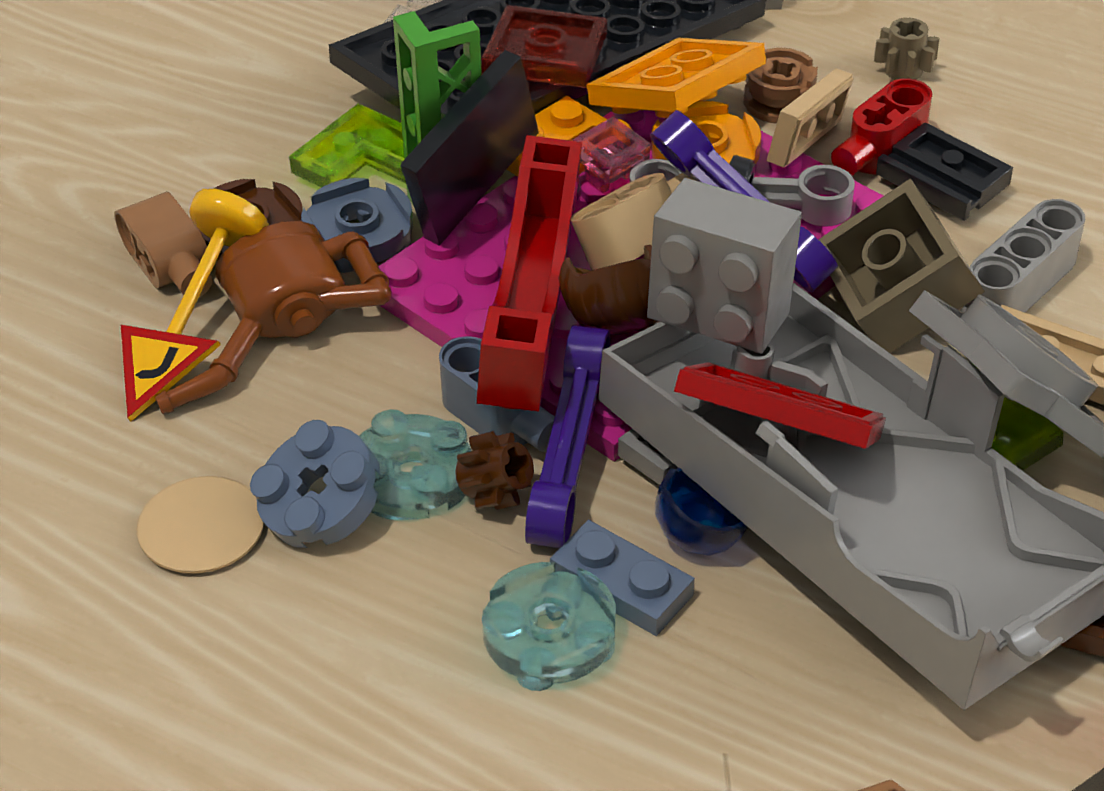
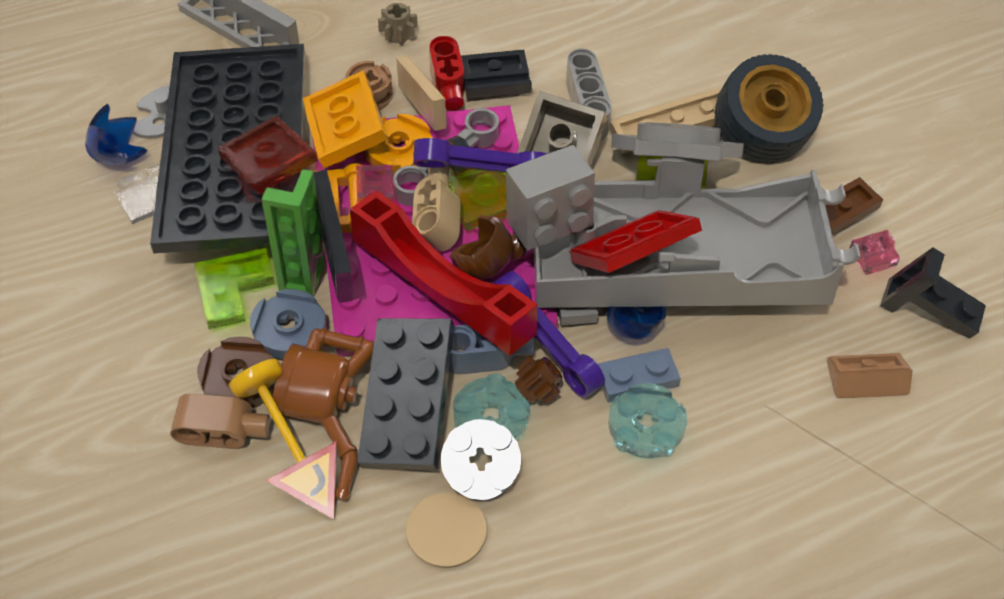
camera: 55 degrees left, 10 degrees up
(347, 359) = (406, 394): none -> plate

